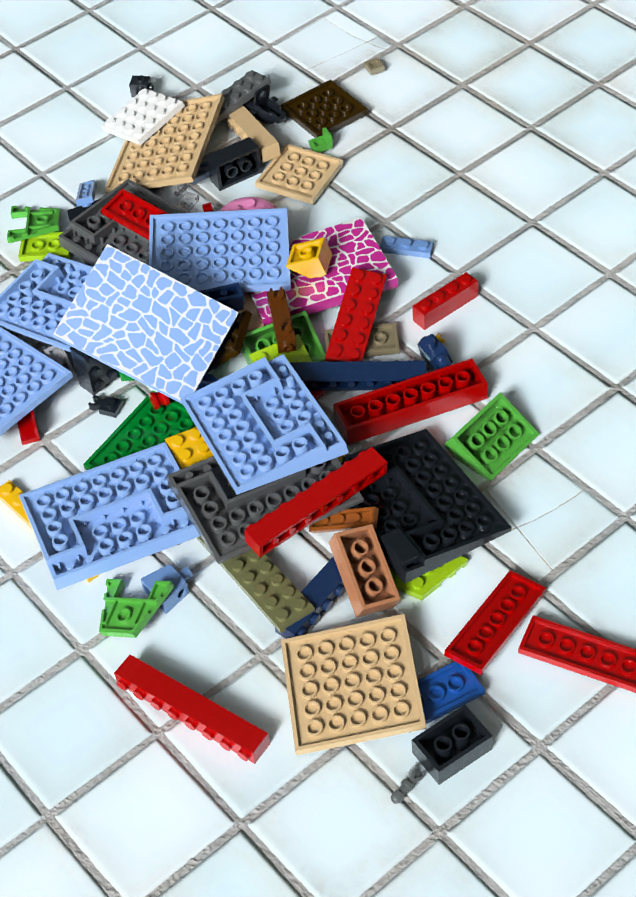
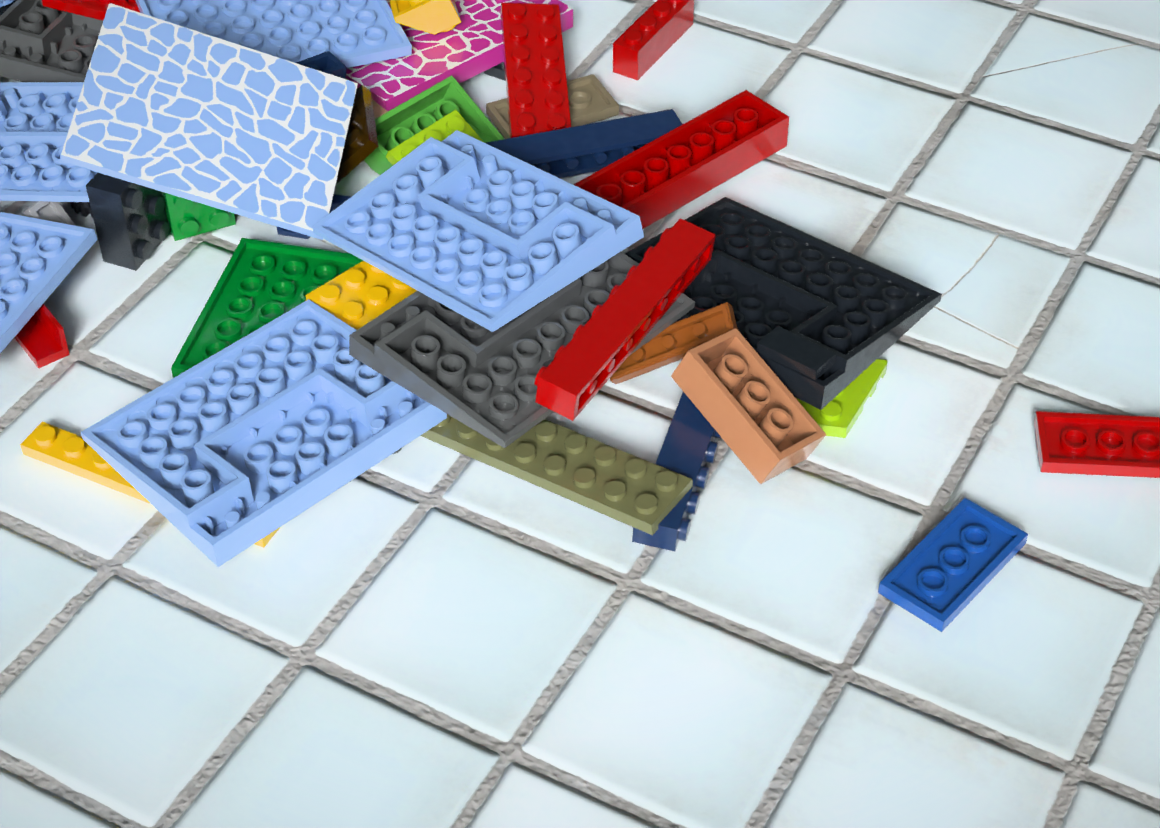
camera: 25 degrees left, 5 degrees down
(109, 406) = (169, 279): black plate -> none
(130, 615) = (371, 574): bright green wing -> none
(158, 399) = (264, 242): red wheel -> none
(178, 579) = (412, 516): medium blue torso -> none
(192, 709) = (556, 692): red brick -> none
(281, 321) = (424, 89): reddish brown brick -> none
(352, 684) = (814, 583): tan plate -> none
(406, 785) = (986, 711): dark grey piece -> none
(434, 351) = (679, 92): dark blue torso -> none
(452, 744) = (1028, 625): black brick -> none
(492, 438) = (828, 190): bright green slope -> none
(495, 622) = (987, 436): red plate -> none

